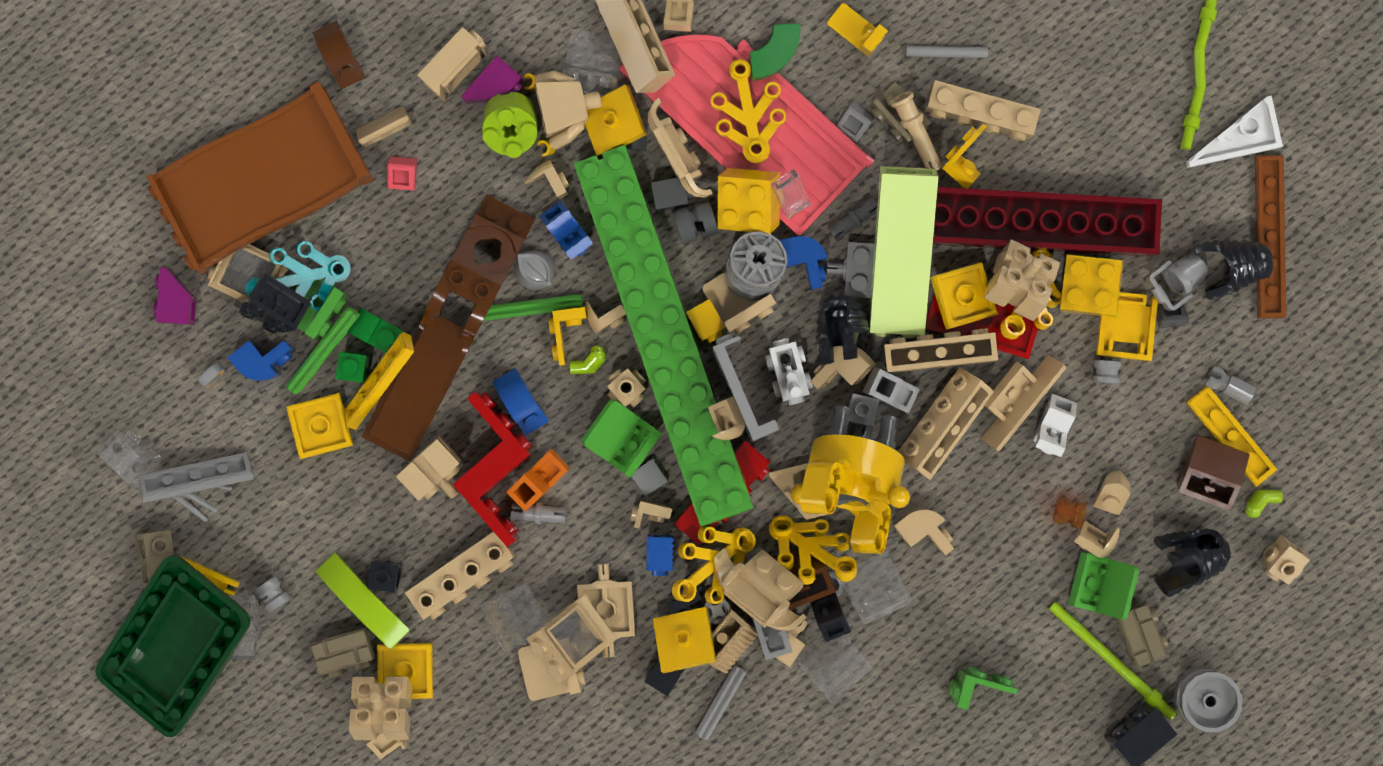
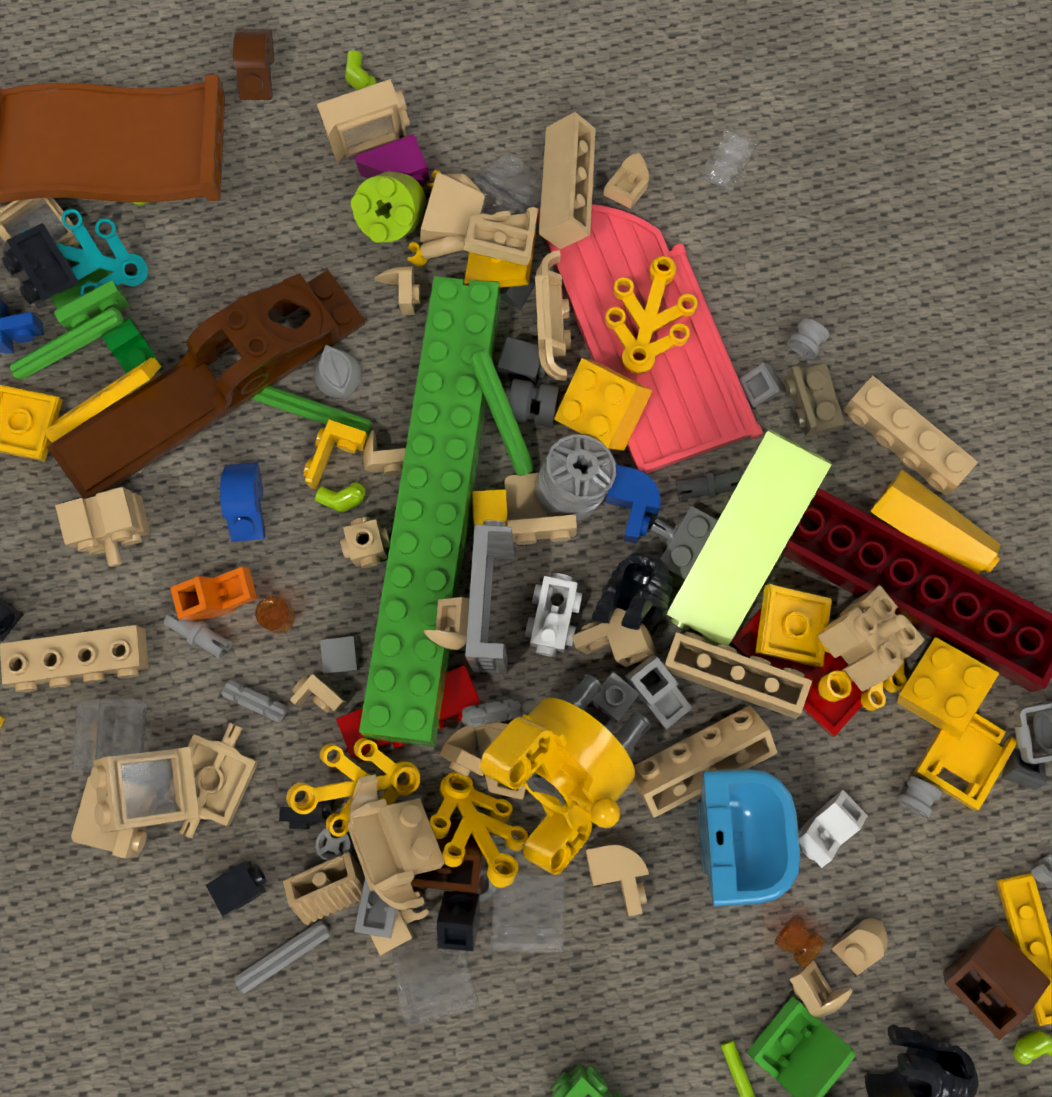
camera: 25 degrees right, 10 degrees down
(352, 367) = (86, 375): green brick -> none
(383, 127) = (260, 157): tan slope -> none
(401, 173) = (253, 210): coral slope -> none
(421, 24) = (355, 74): none -> lime arm
(494, 468) = (171, 557): red bracket -> none
(566, 230) = (390, 345): blue brick -> none
(586, 475) = (269, 611): none -> clear orange wheel
(605, 540) = (254, 701): none -> light grey axle
(611, 108) = (502, 235): none -> tan wing
(621, 437) = (329, 591): bright green bracket -> none
(659, 554) = (301, 745): blue brick -> none
(678, 243) = (502, 412): none -> bright green axle
(684, 640) = (275, 859): yellow plate -> none
(770, 501) = (460, 751): none -> tan plate
(776, 53) = (710, 272): green tile -> none
(780, 464) = (491, 713): none -> light grey axle
(790, 194) = (652, 416): clear tile -> none
(856, 29) = (810, 291): yellow bracket -> none
(873, 69) = (808, 338): none -> light grey wheel
(912, 121) = (826, 408): tan pin -> none
(947, 51) = (897, 359): light grey bar -> none
(958, 167) = (855, 488): yellow bracket -> none
(1008, 458) = (758, 832): none -> dark azure piece
(1017, 397) = (810, 769): tan bracket -> none
(1030, 169) = (936, 524): none -> yellow slope

